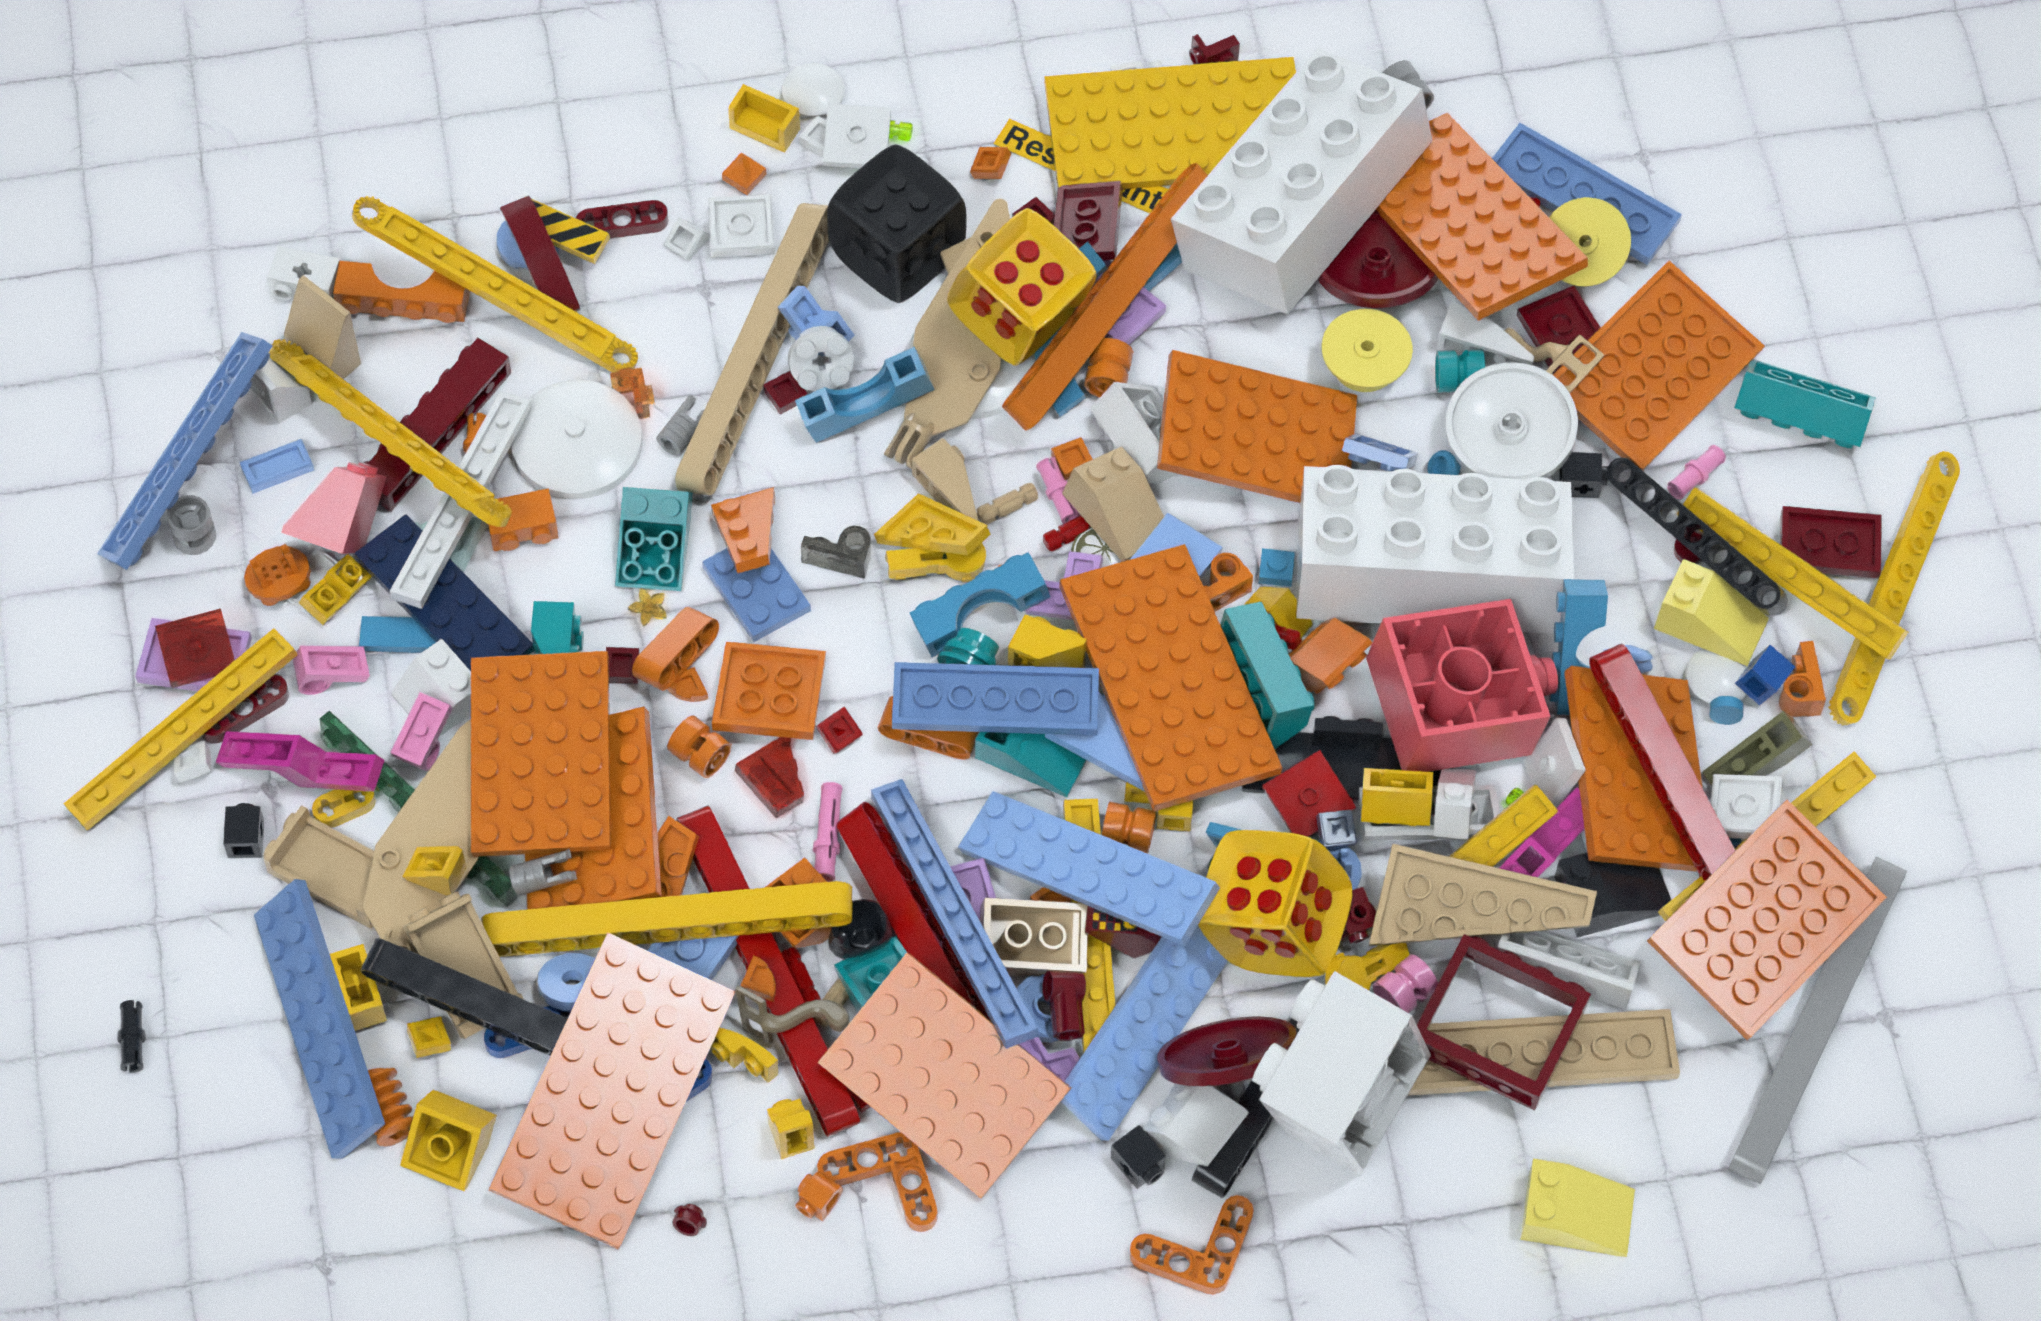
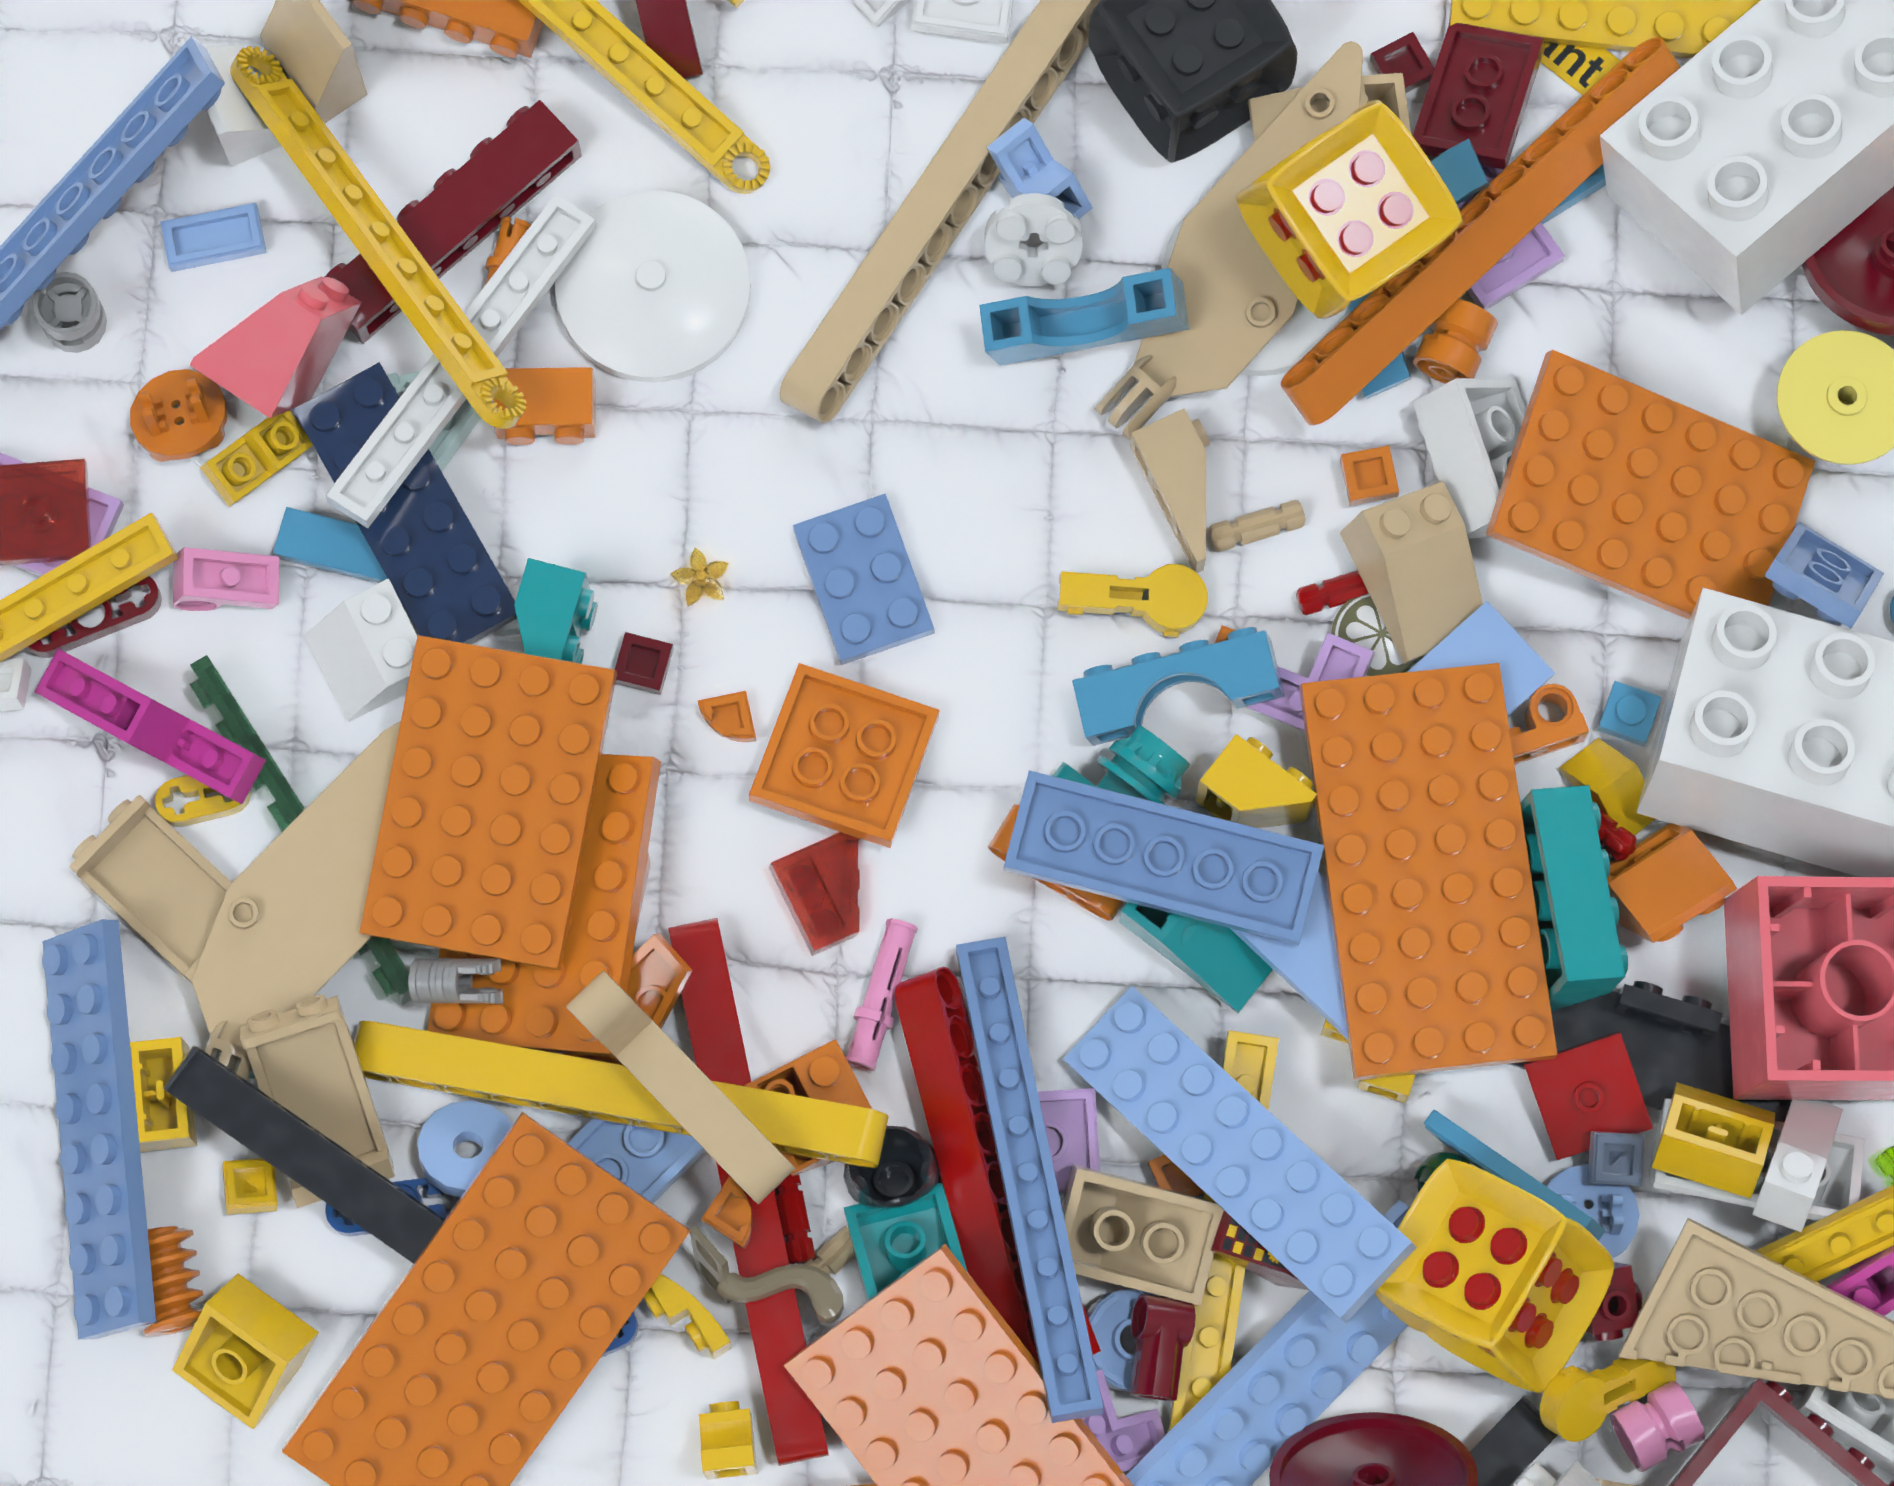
camera: 15 degrees right, 15 degrees up
(243, 831) = (52, 810): black brick -> none
(420, 733) = (328, 721): bright pink plate -> none
(437, 868) = (303, 946): yellow slope -> none
(633, 381) = (762, 237): clear orange bracket -> none
(653, 538) = (729, 472): teal slope -> none
(675, 648) = (723, 659): orange beam -> none
(679, 429) = (805, 304): light grey hinge -> none
(703, 749) = (714, 809): orange wheel -> none
(704, 891) = (680, 1087): none -> tan beam
(746, 528) = (867, 488): orange wing -> none
(783, 392) = (971, 275): dark red tile -> none
(839, 557) = (969, 550): clear smoke plate -> none
(839, 730) = (932, 837): red tile -> none
(932, 527) = (1137, 549): yellow wing -> none
(1055, 485) = (1334, 518): bright pink pin -> none
(1129, 827) = (1314, 1087): orange wheel -> none

